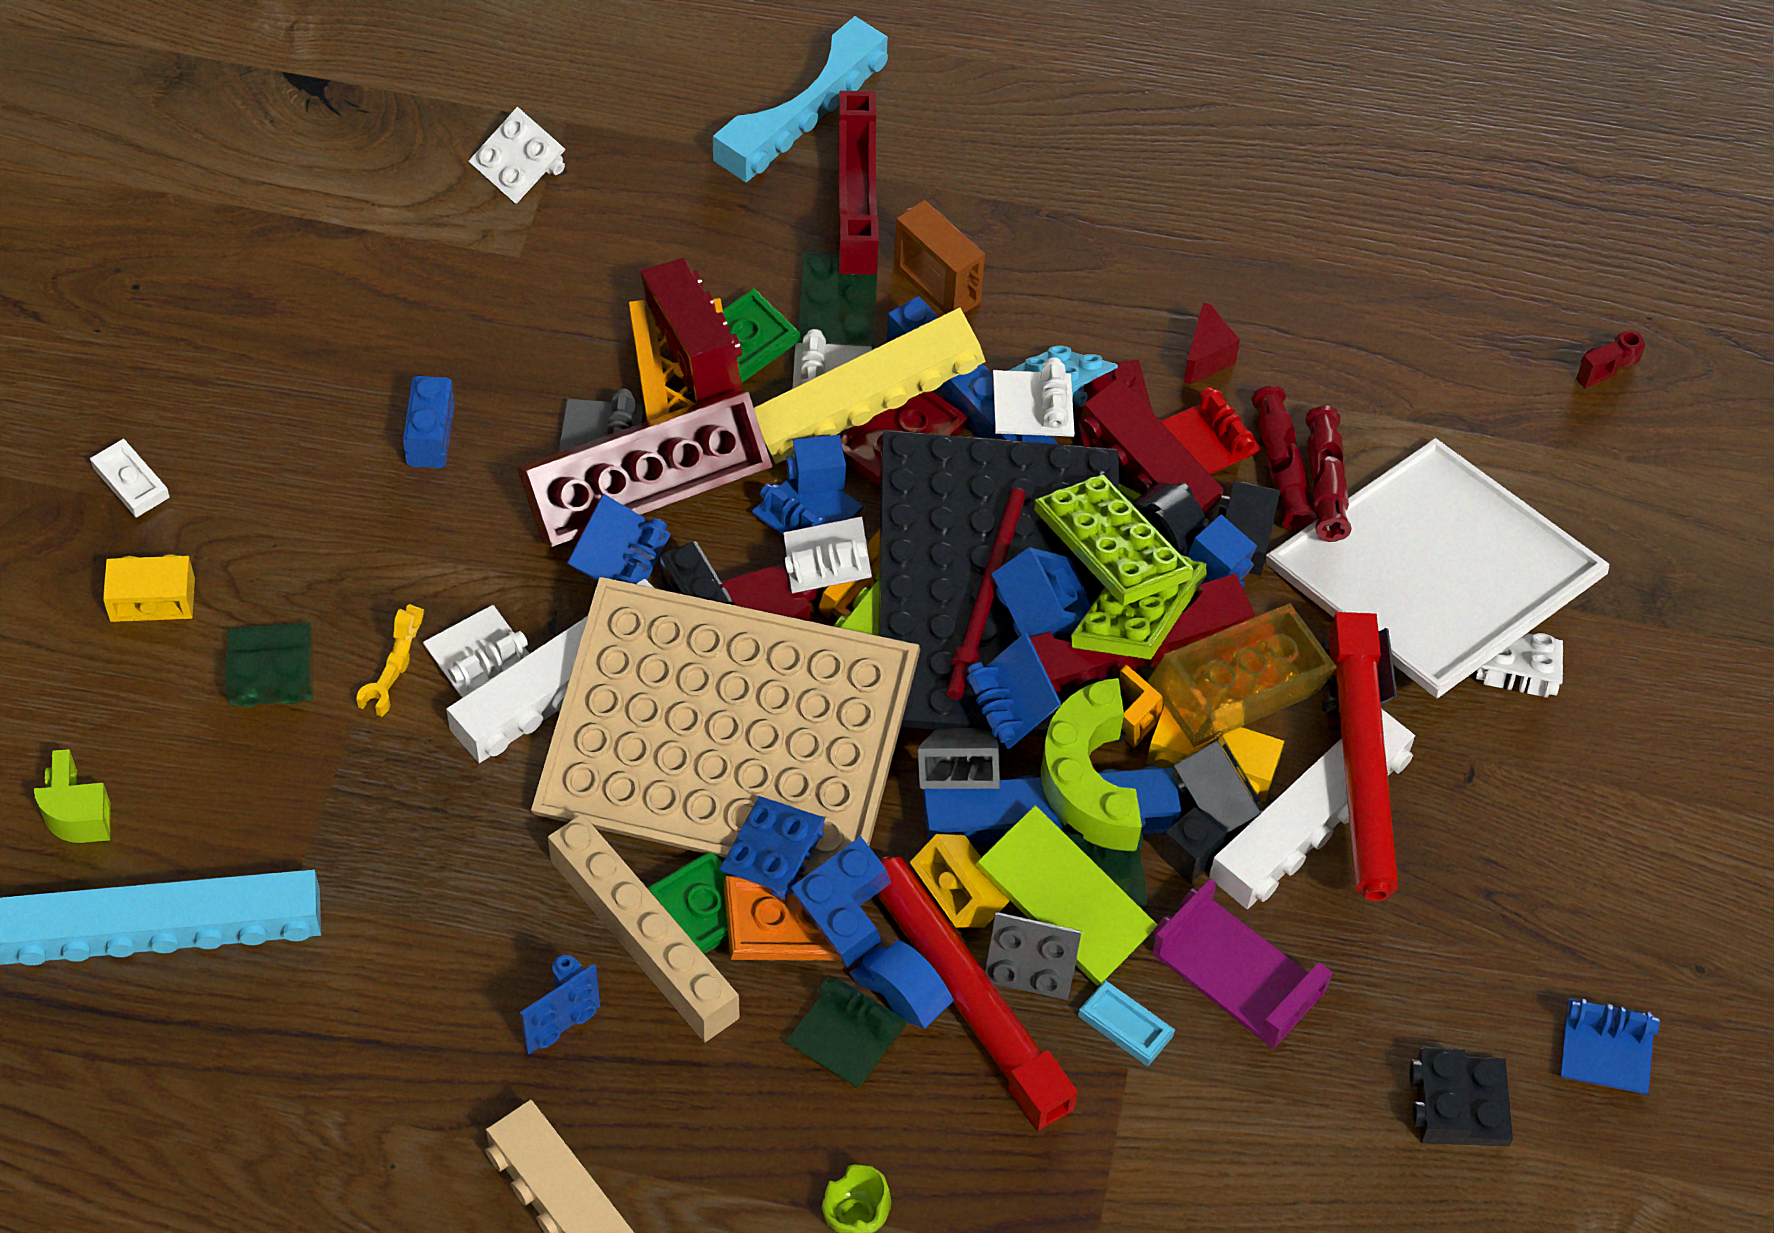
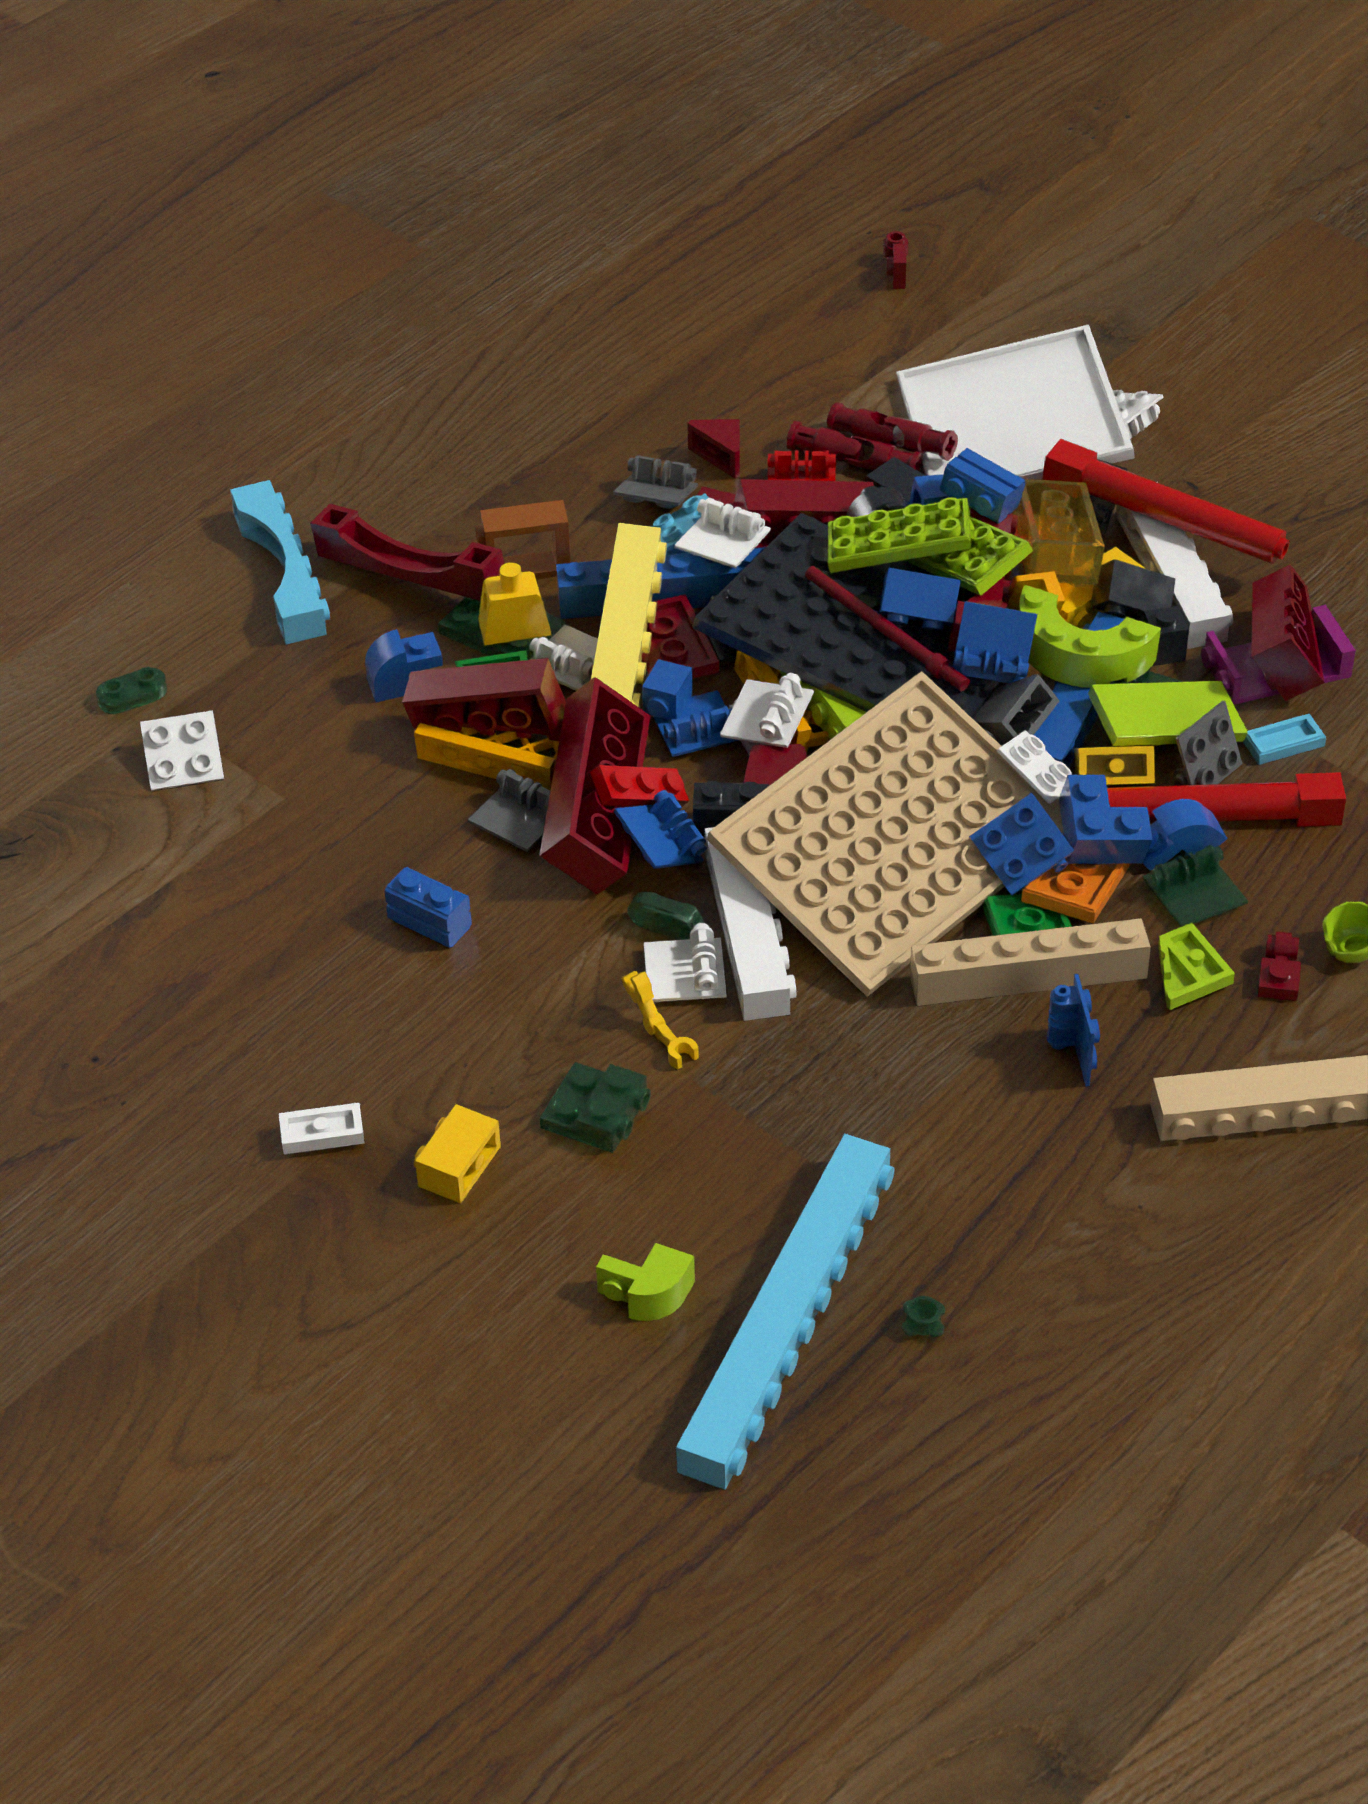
camera: 55 degrees left, 10 degrees down
(142, 1030) = (926, 1308): none -> clear green plate
(532, 618) = (663, 915): none -> clear green plate
(576, 85) = (131, 690): none -> clear green plate
(661, 500) = (636, 785): none -> red plate
(718, 248) = (392, 659): none -> blue brick
(728, 1072) = (1190, 966): none -> lime wing
(770, 1160) = (1278, 974): none -> dark red plate
(830, 293) = (512, 607): none -> yellow torso
(889, 809) = (1036, 765): none -> white hinge
(1106, 322) = (648, 485): none -> dark grey hinge
(1230, 574) = (986, 485): none -> blue brick
(1255, 949) = (1285, 634): none -> dark red wedge

